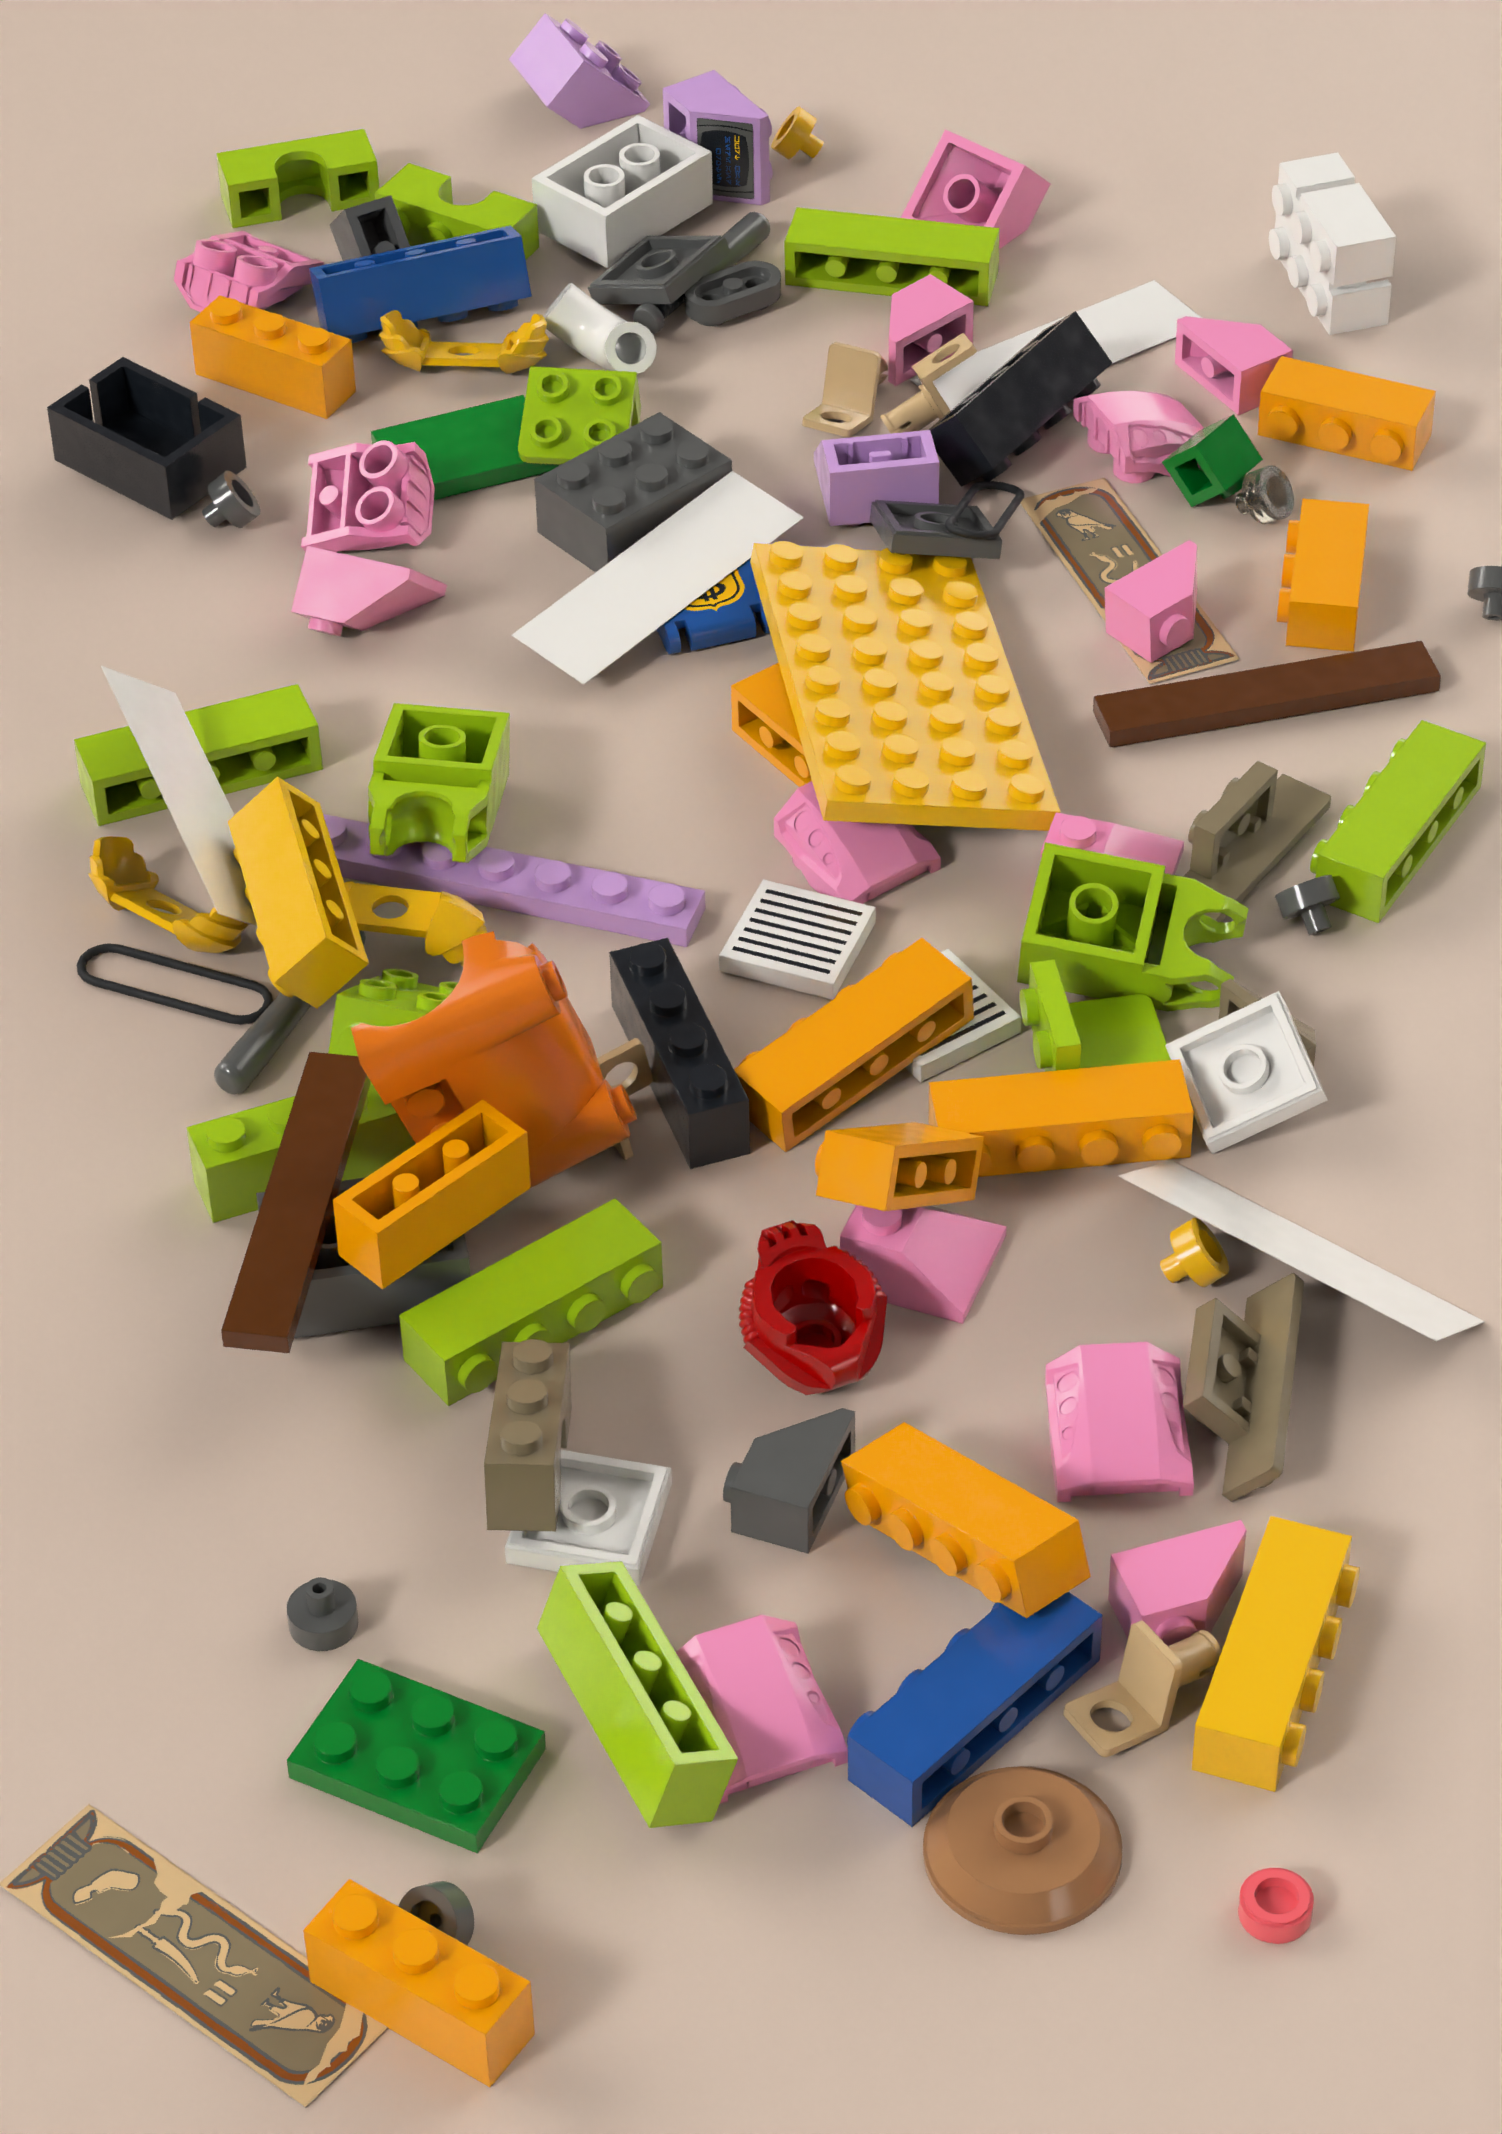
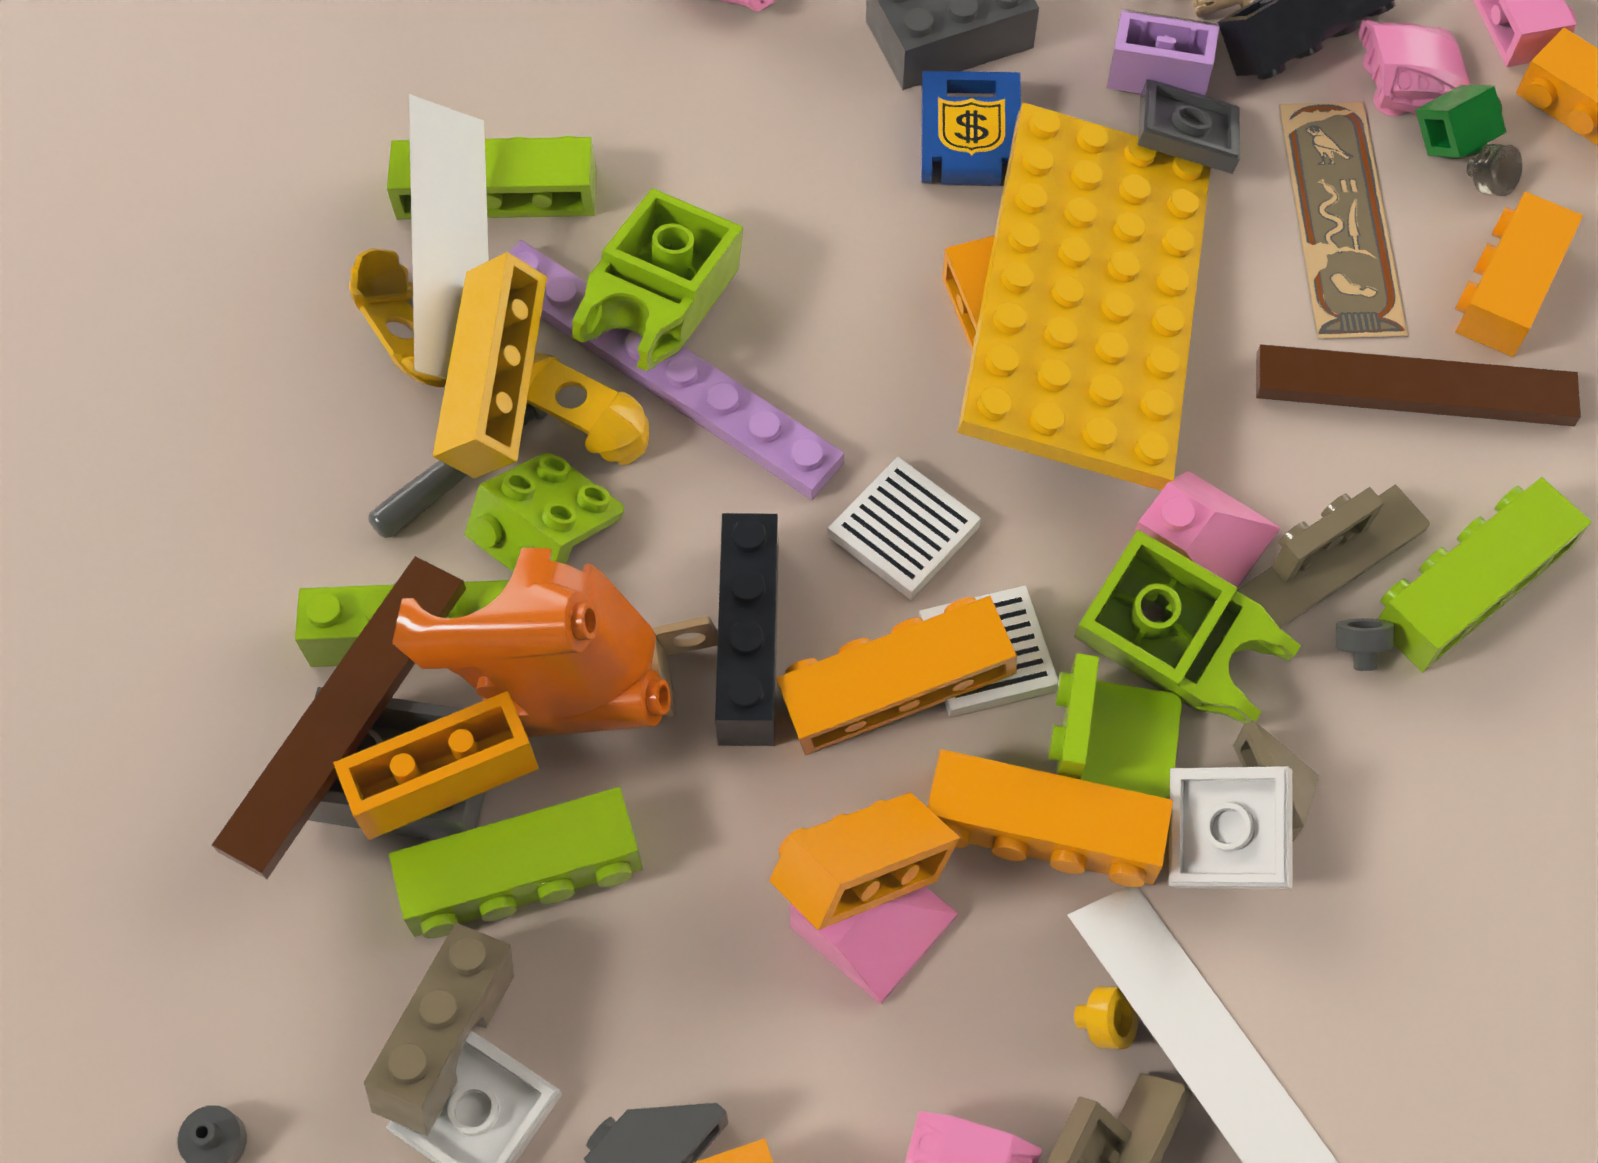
camera: 20 degrees right, 20 degrees up
(167, 1001) = (365, 415): black piece -> none
(357, 591) = (686, 46): bright pink slope -> none
(656, 577) = (935, 107): white sticker -> none
(811, 1311) = (736, 977): red helmet -> none
(850, 857) = (978, 467): bright pink slope -> none
(949, 523) = (1225, 103): black piece -> none
(1155, 604) = (1353, 261): bright pink slope -> none

